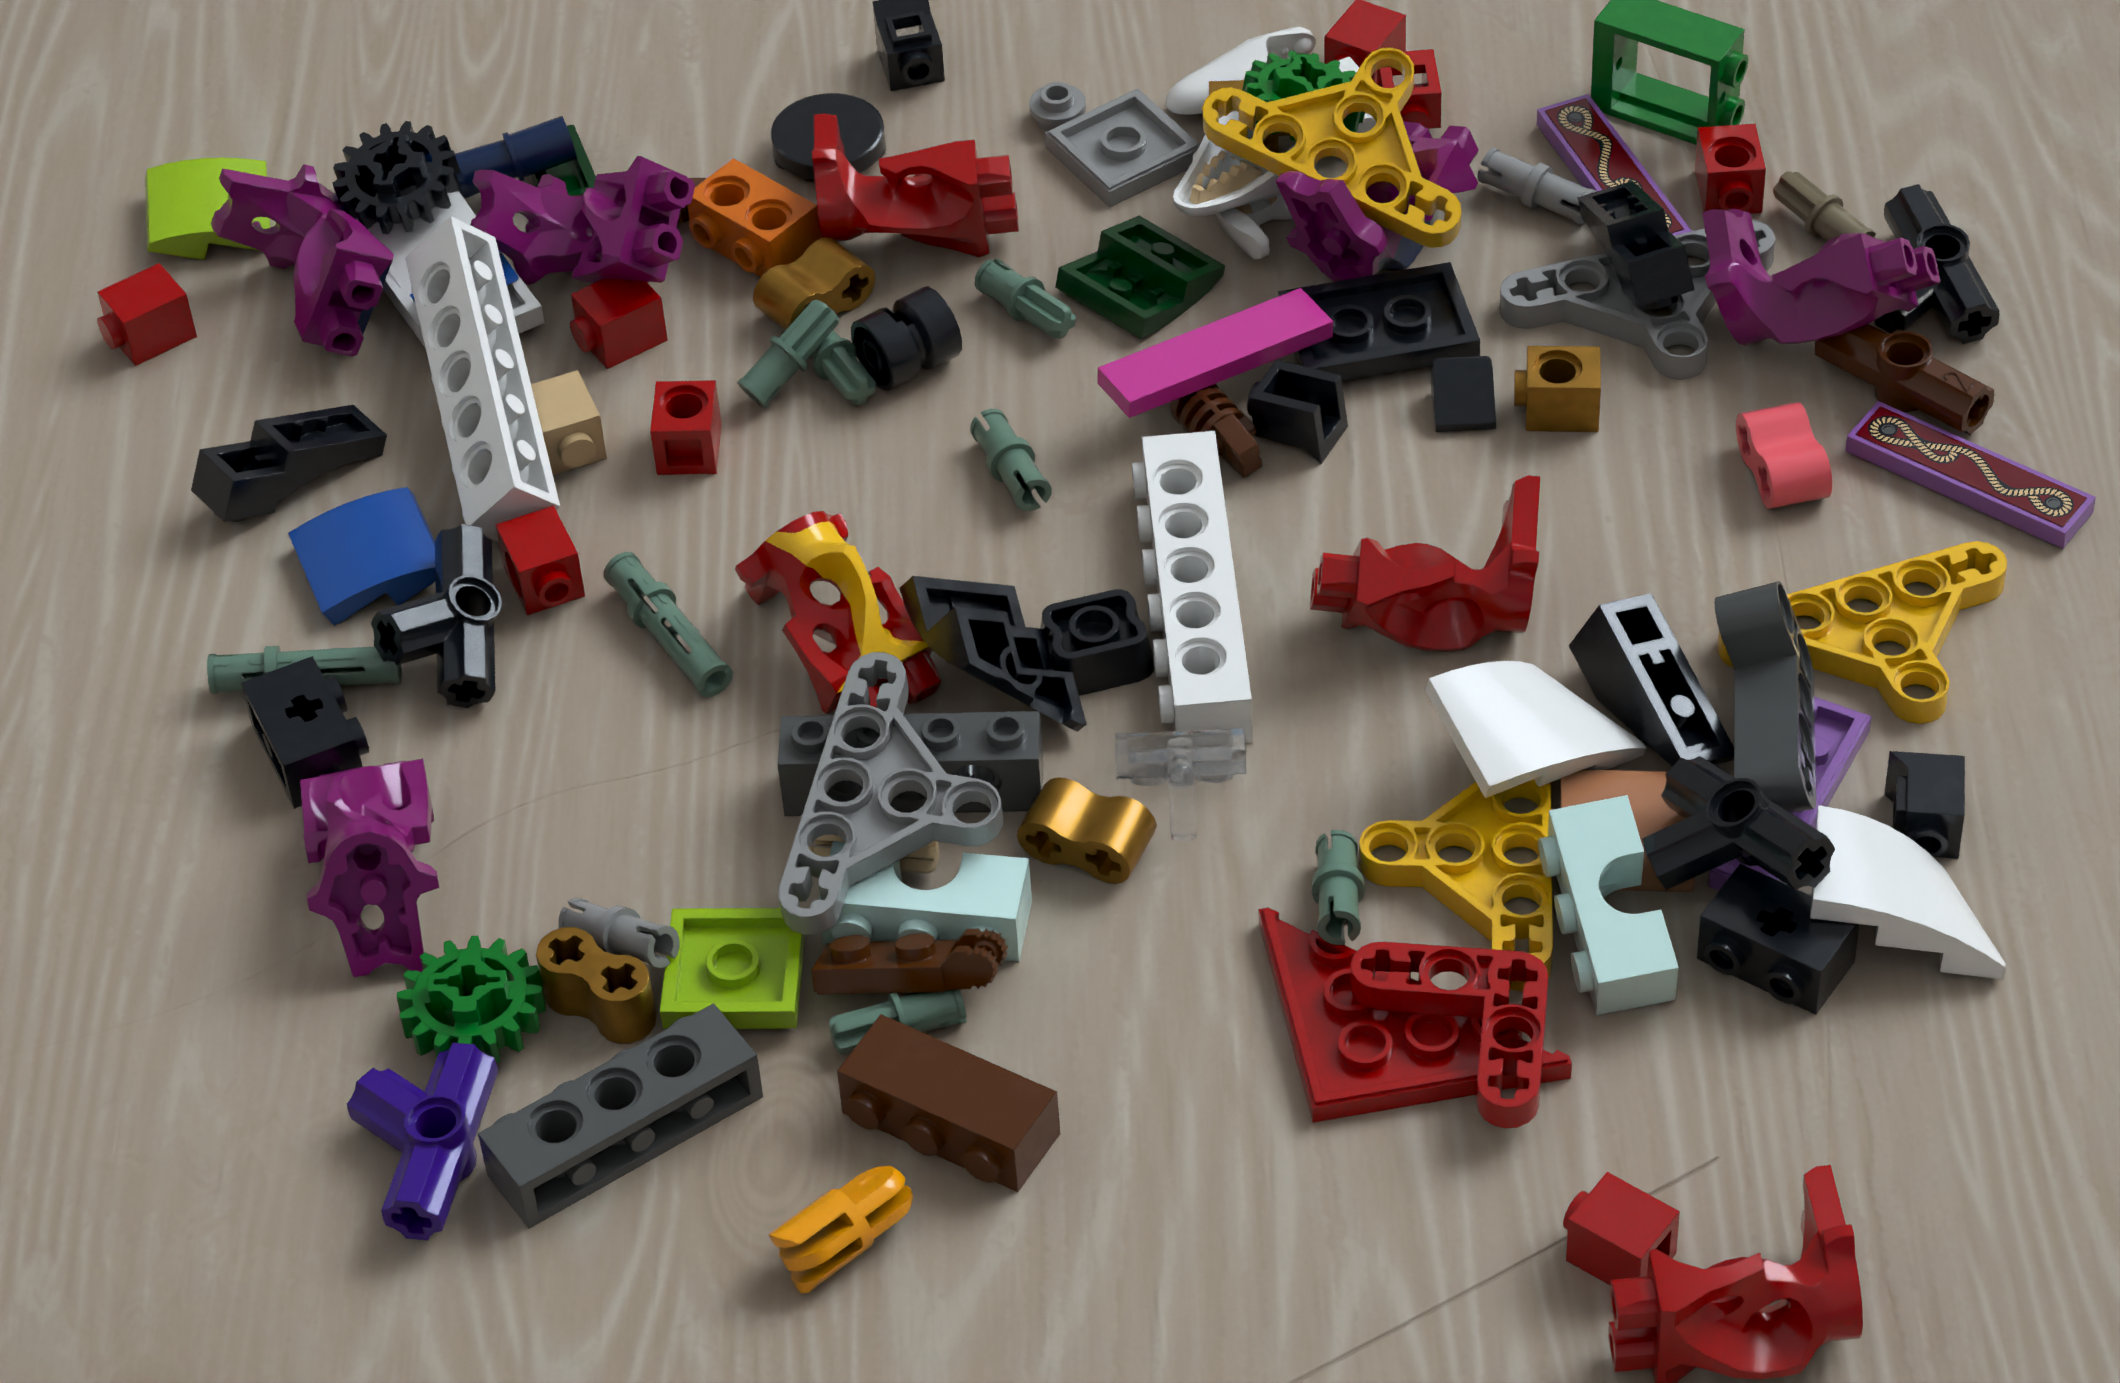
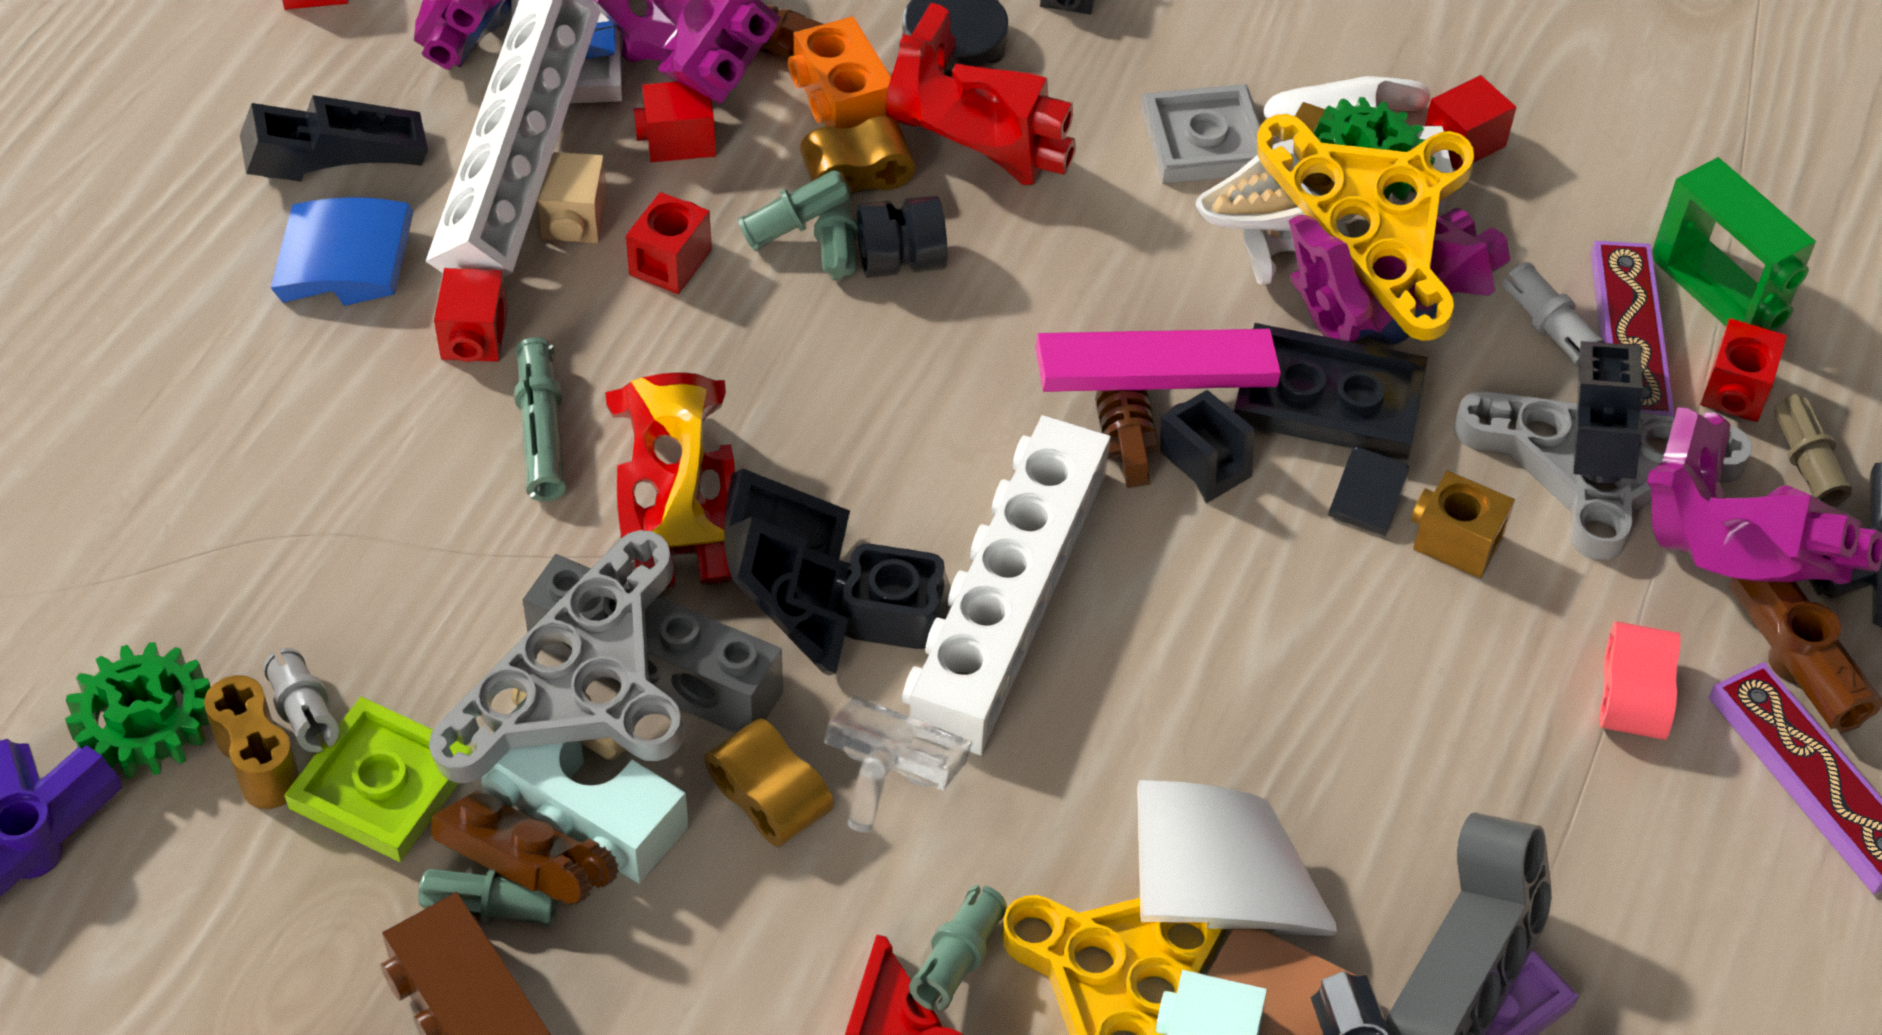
camera: 20 degrees right, 5 degrees up
(303, 724) = (180, 391): black brick -> none
(348, 666) = (199, 324): sand green pin -> none
(366, 833) = (141, 506): magenta hips -> none
(452, 622) = (338, 340): black piece -> none
(620, 1115) = (157, 905): dark grey brick -> none
(1010, 460) = (926, 387): sand green pin -> none
(1024, 298) = (1031, 238): sand green axle -> none
(1056, 105) = (1168, 72): light grey plate -> none
(1140, 276) = (1146, 259): dark green slope -> none
(1425, 100) = (1487, 192): red brick -> none
(1429, 596) = (1209, 690): red hips -> none
(1648, 681) = (1373, 871): black slope -> none
(1846, 638) = (1677, 909): yellow beam -> none

